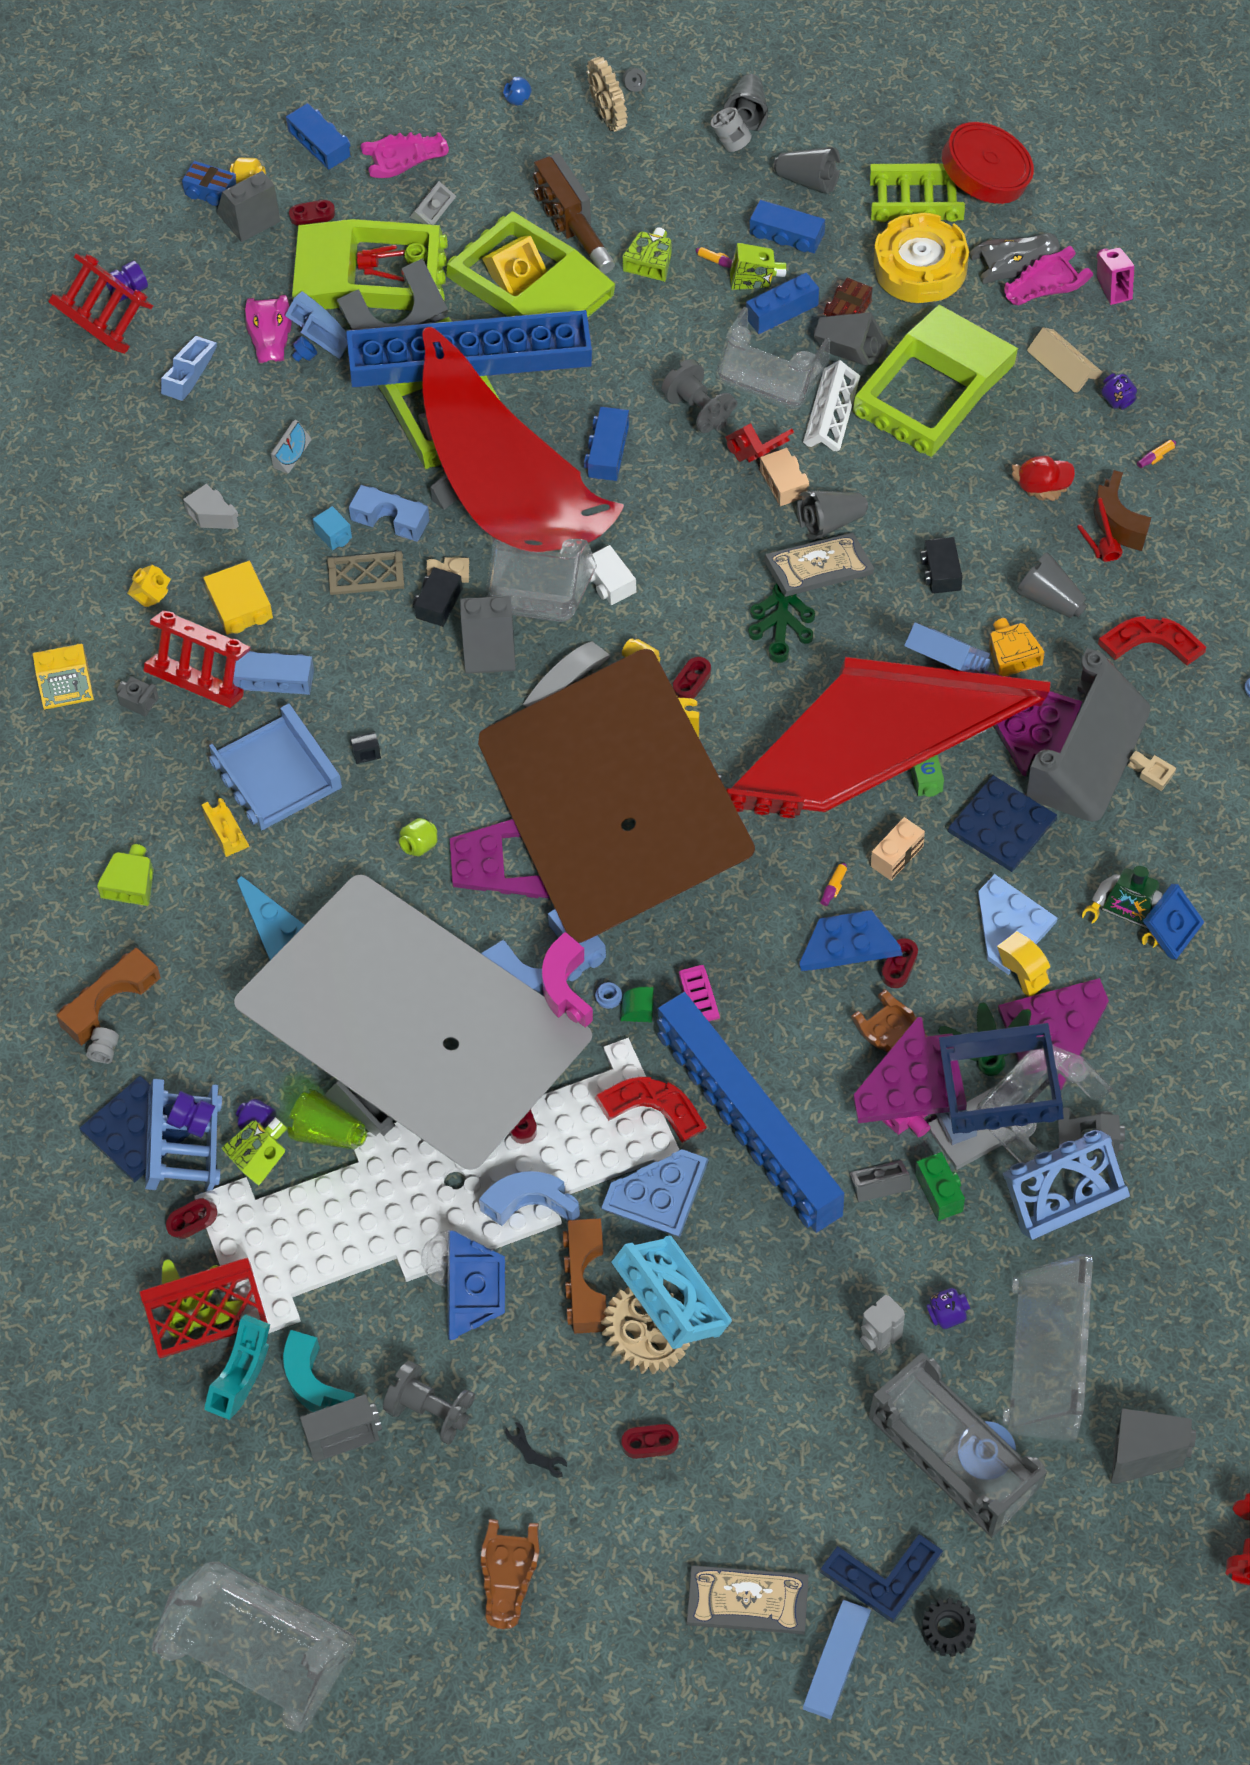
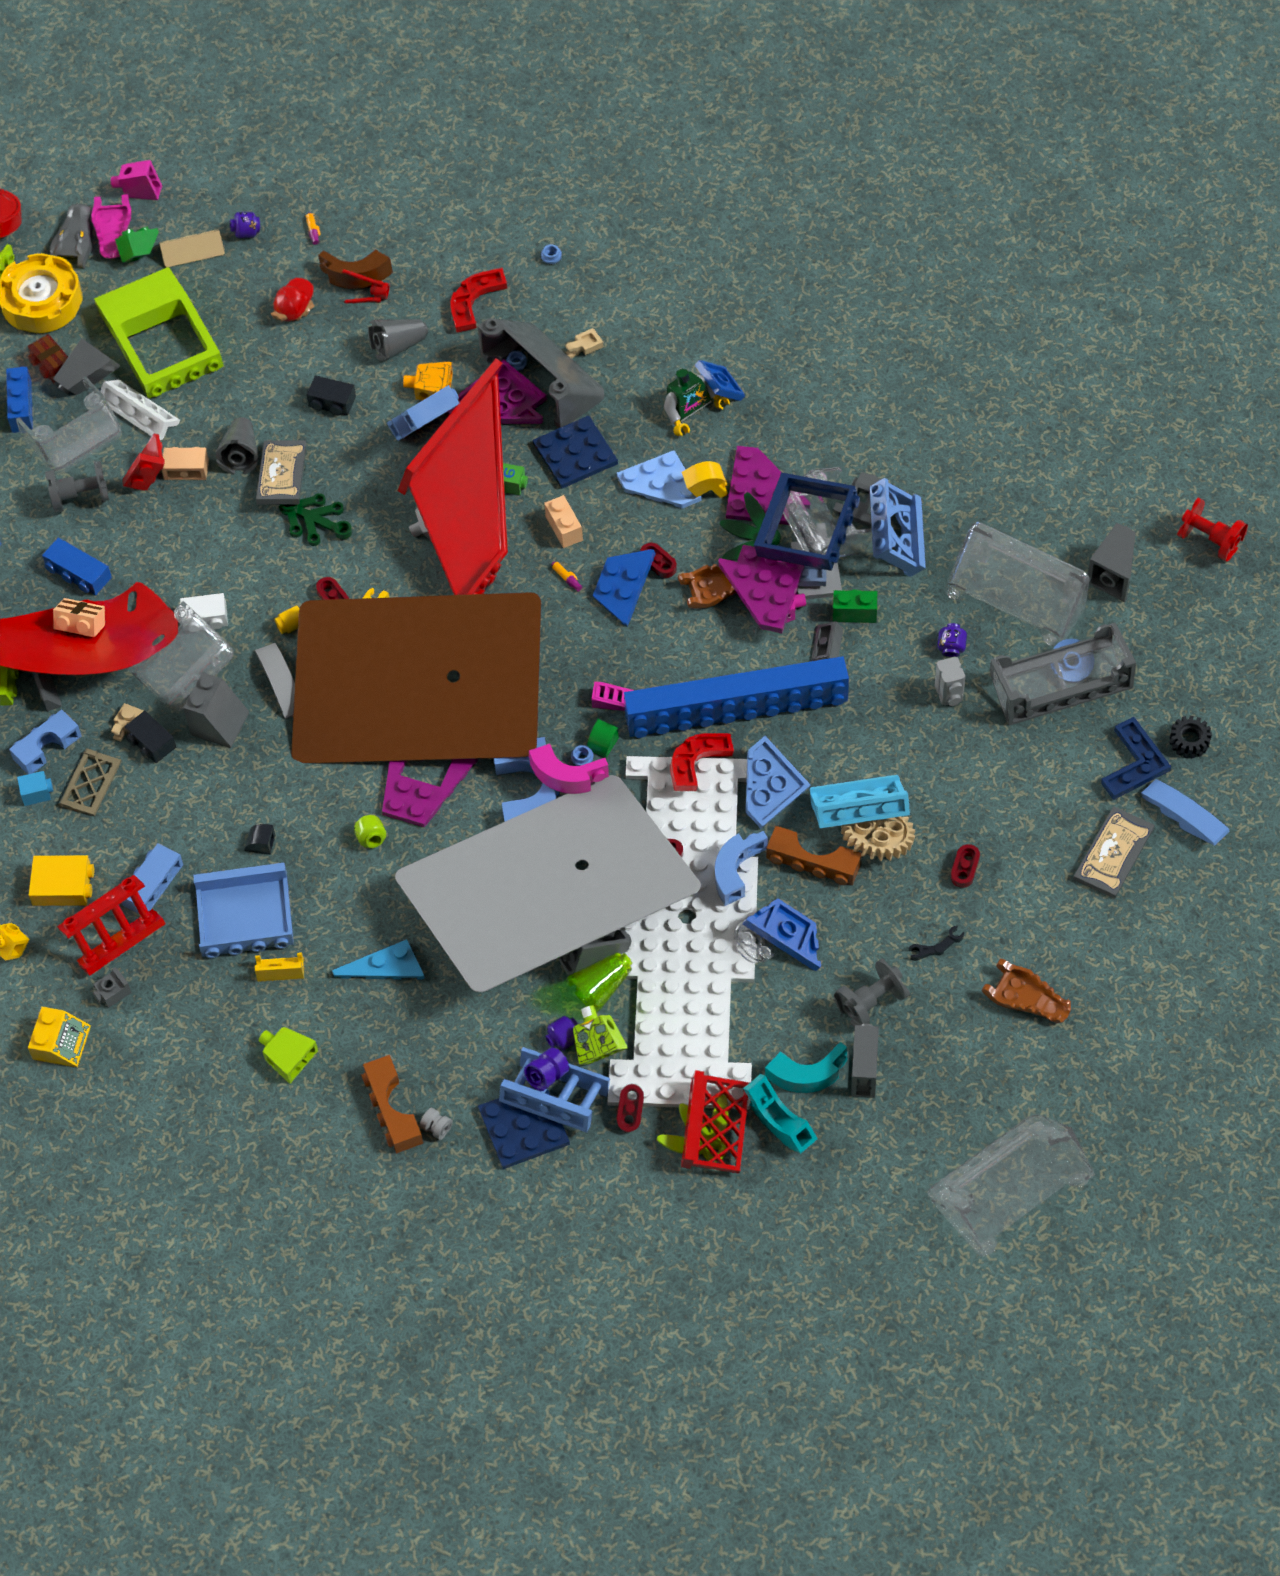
camera: 65 degrees left, 0 degrees up
(540, 470) = (79, 617): none -> light nougat brick
(1032, 310) = (136, 245): none -> green slope

